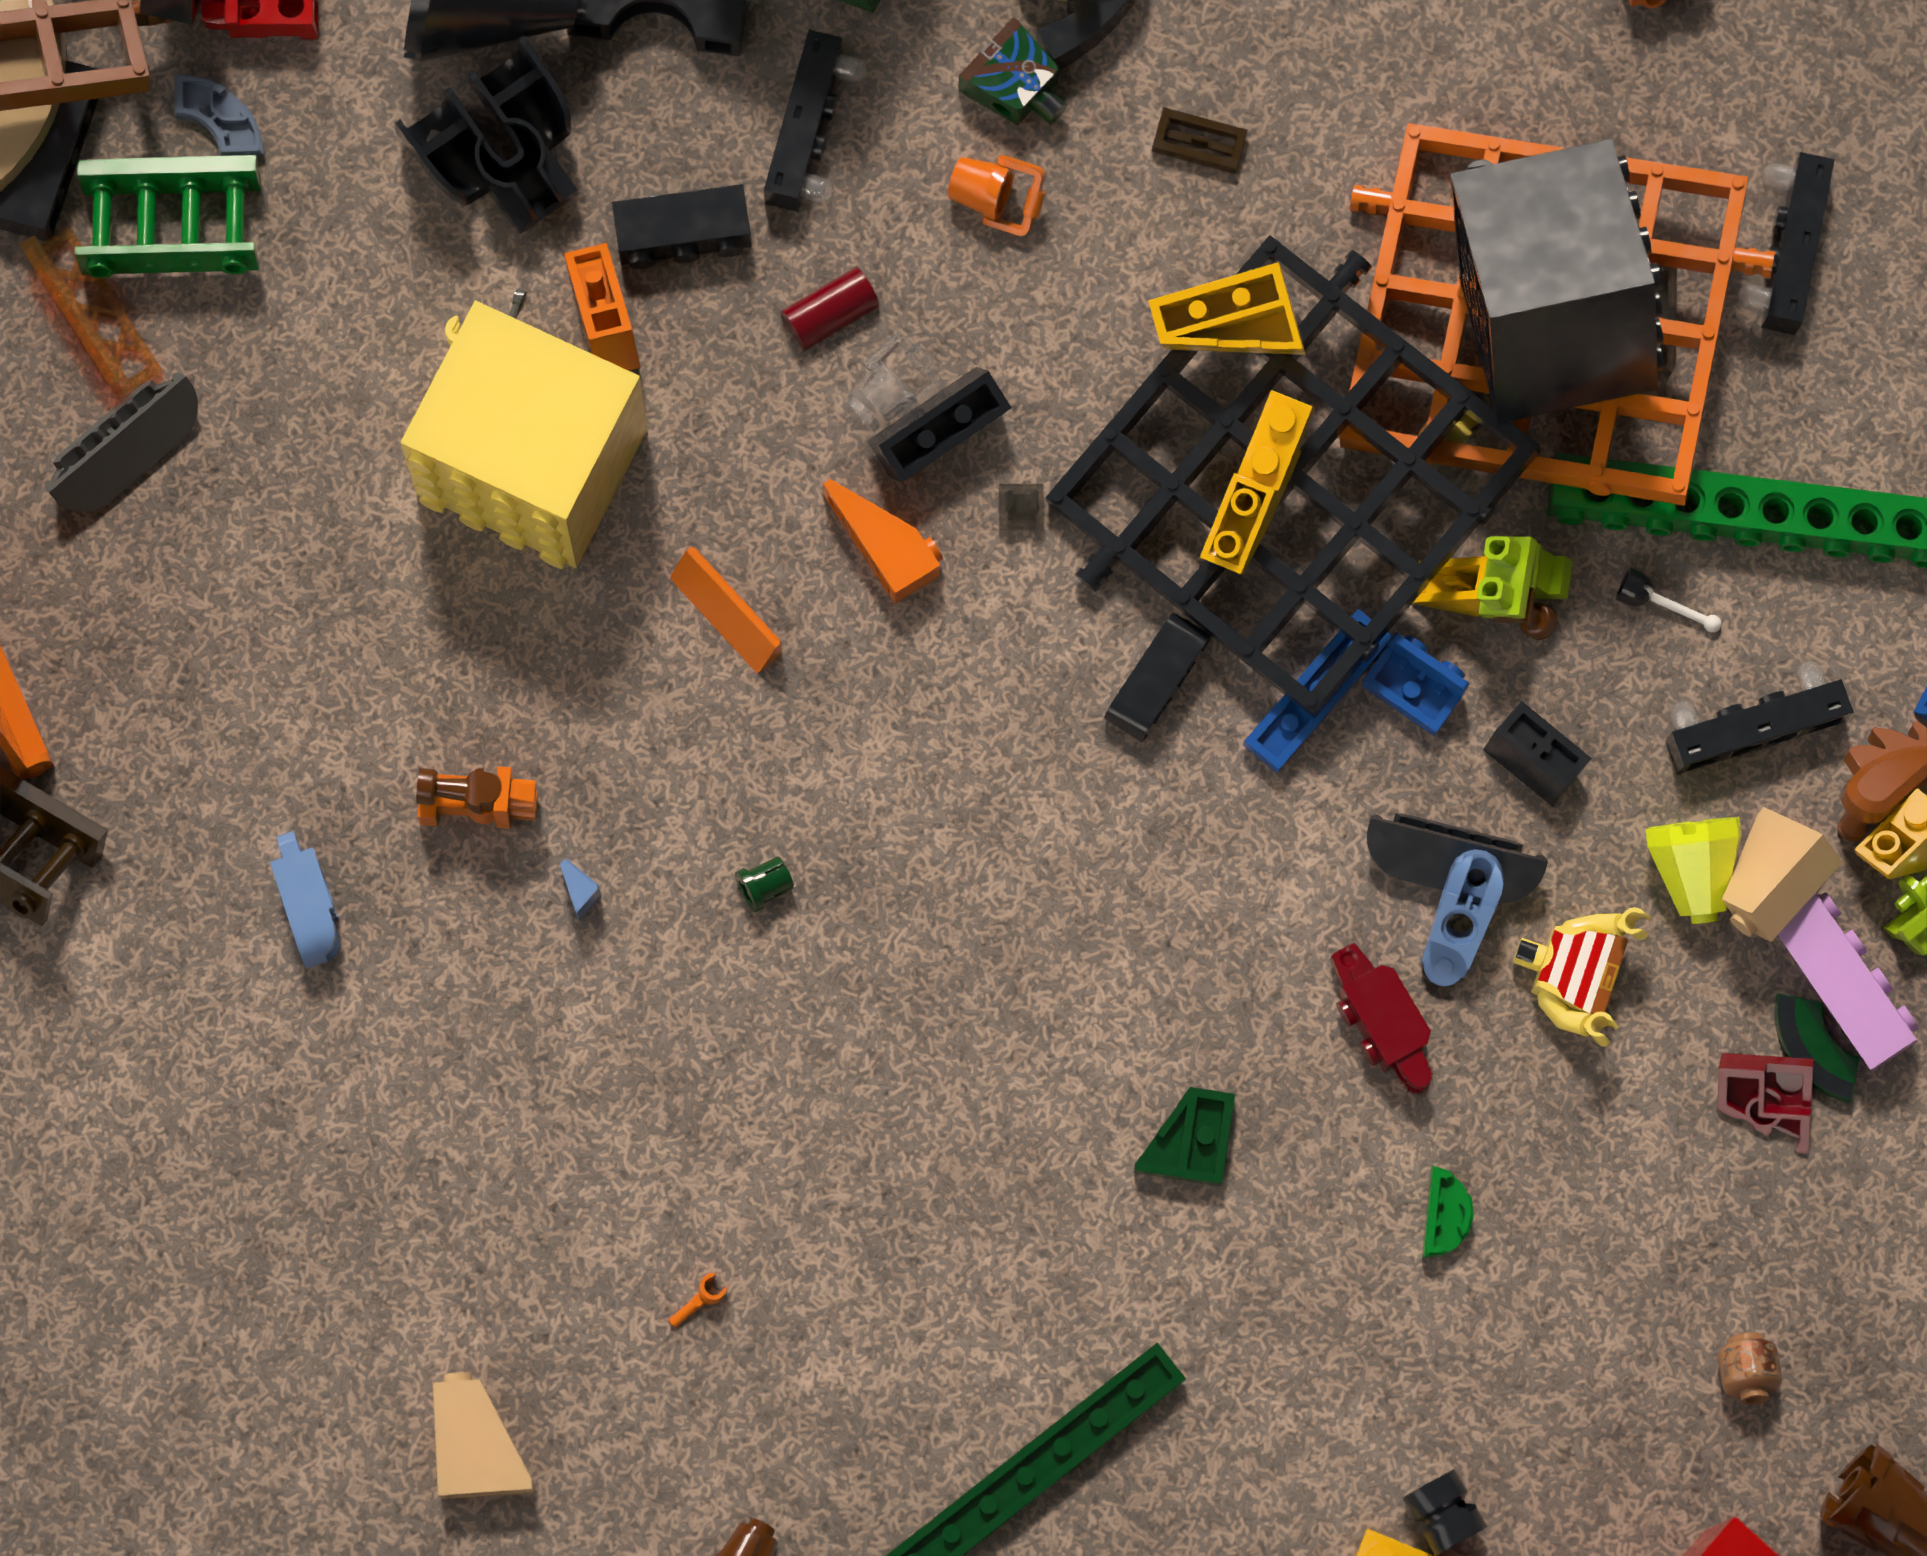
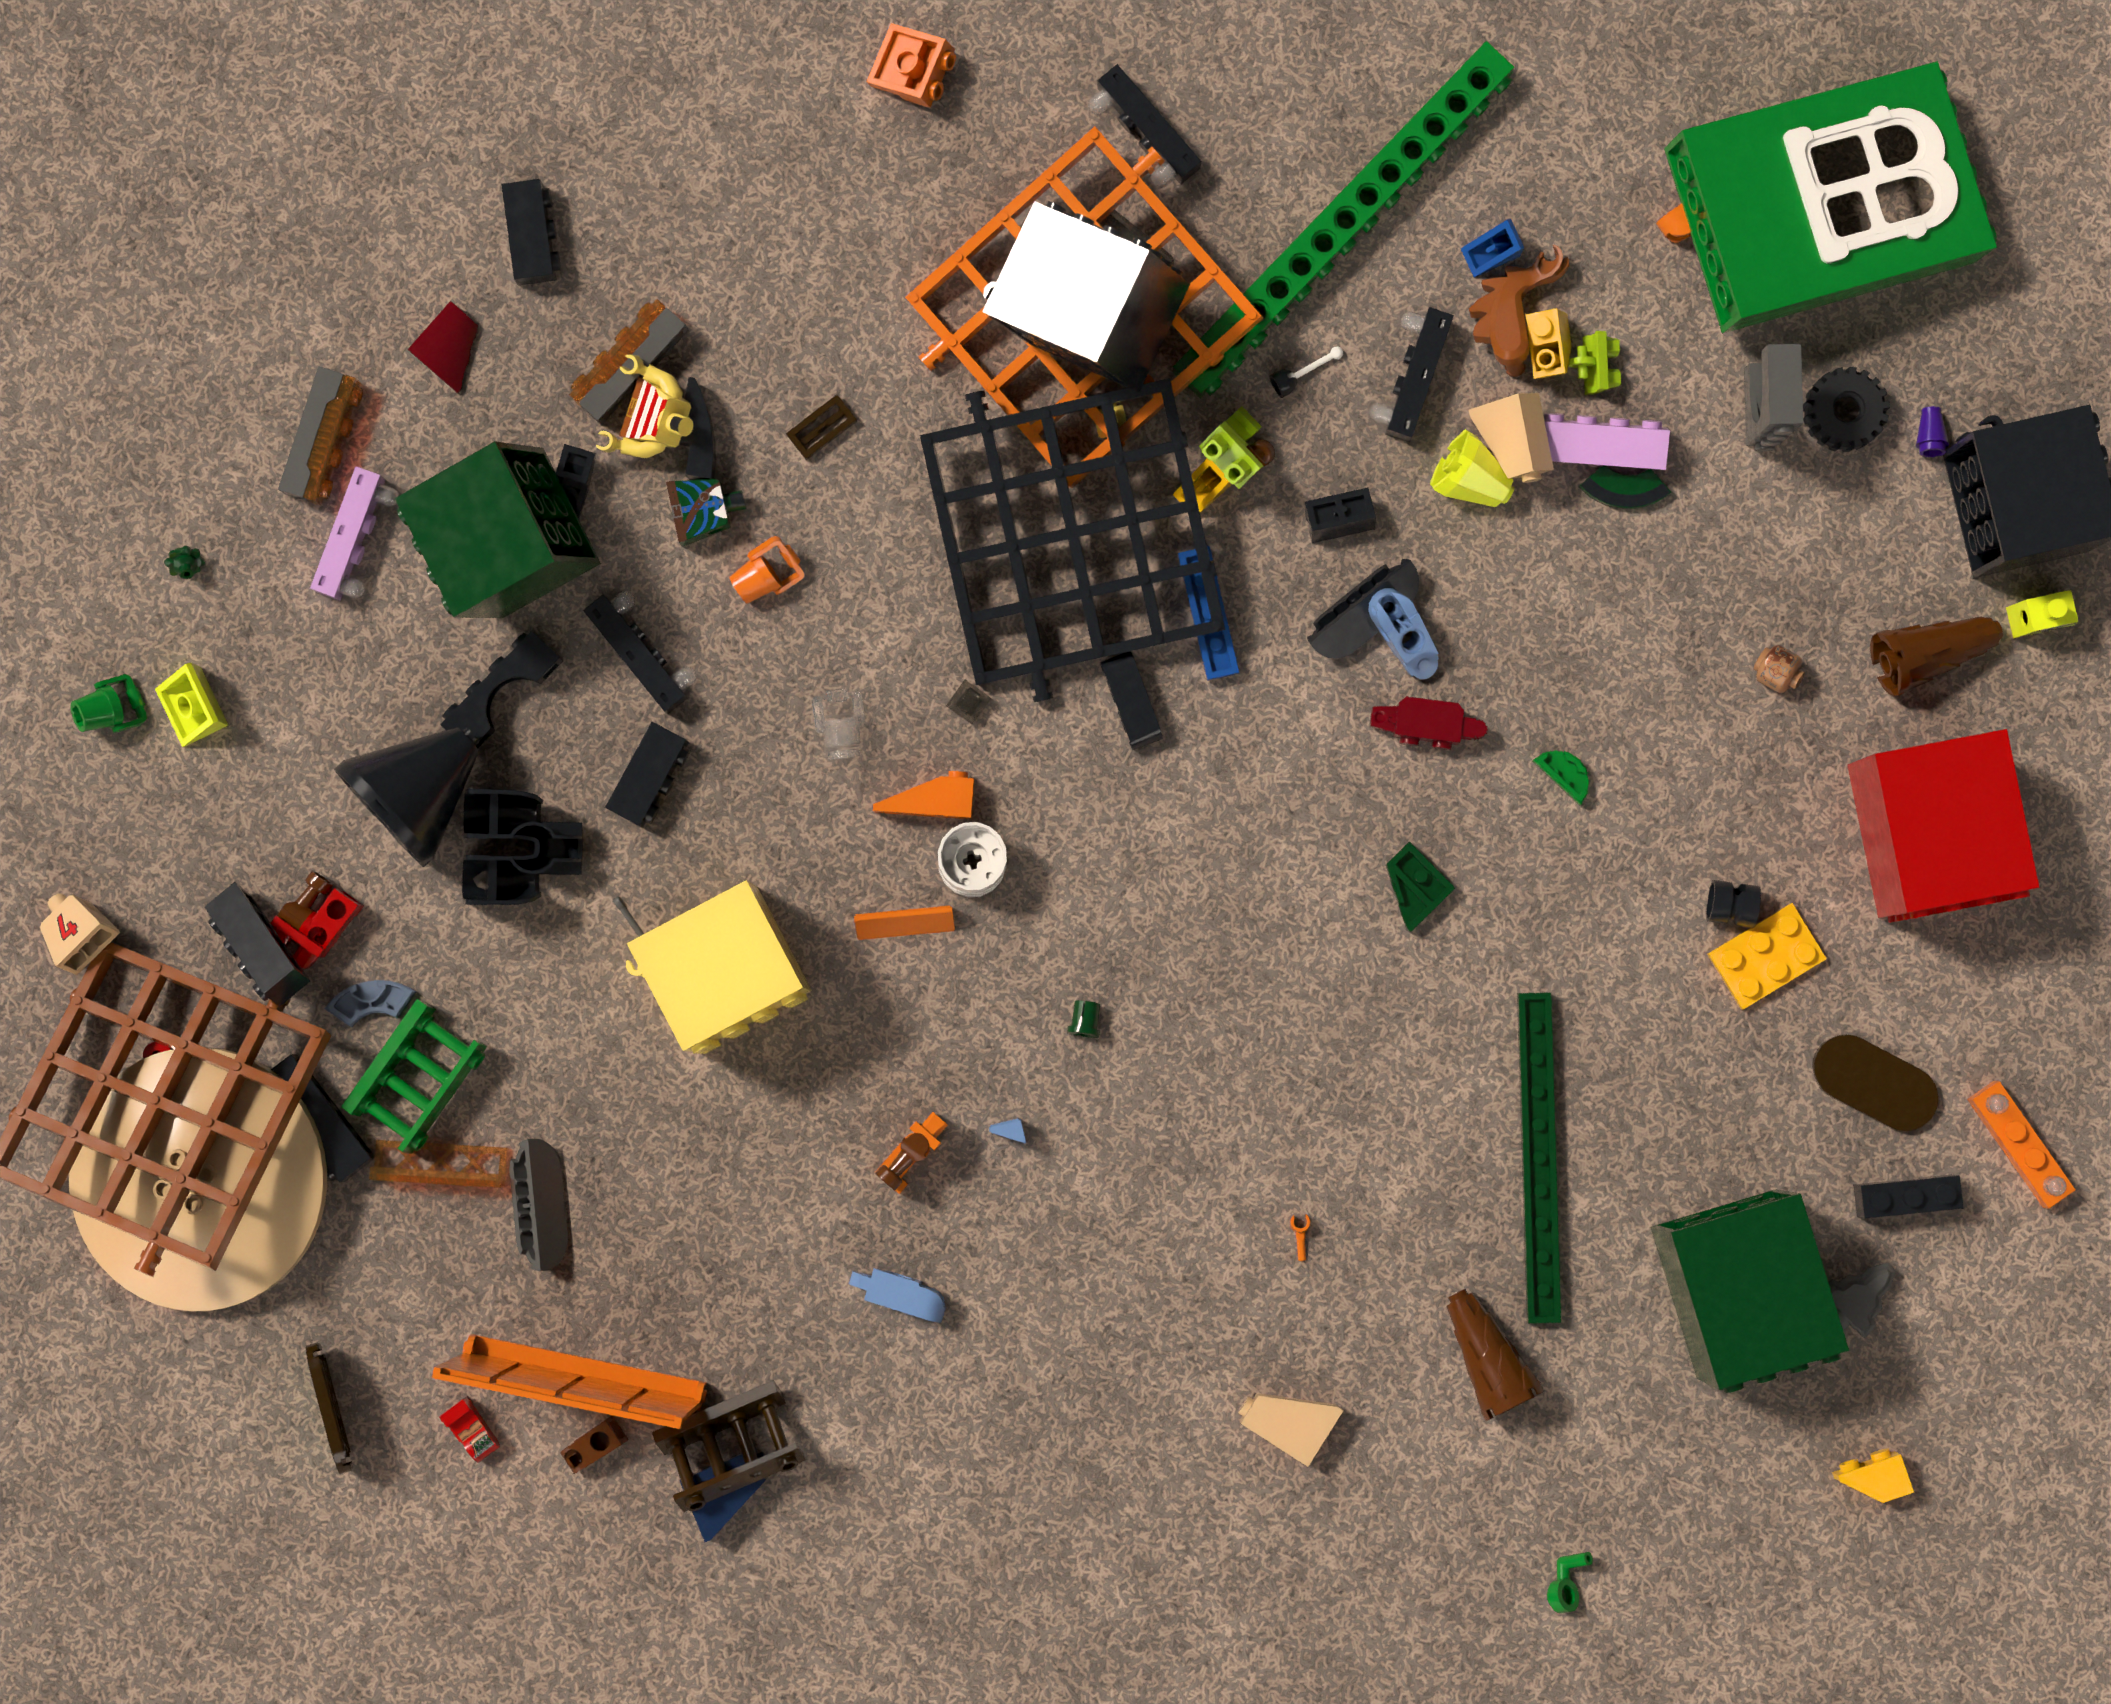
camera: 45 degrees left, 10 degrees up
(602, 306) = (665, 860): orange slope -> none
(830, 308) = (763, 724): dark red brick -> none
(842, 604) = (984, 845): none -> white wheel
(939, 424) = (886, 714): black brick -> none
(1231, 315) = (956, 497): yellow wedge -> none
(1259, 483) = (1068, 558): yellow slope -> none
(1416, 683) = (1247, 553): blue bracket -> none
(1580, 969) = (1484, 589): torso -> none
(1768, 1093) = (1632, 535): dark red slope -> none

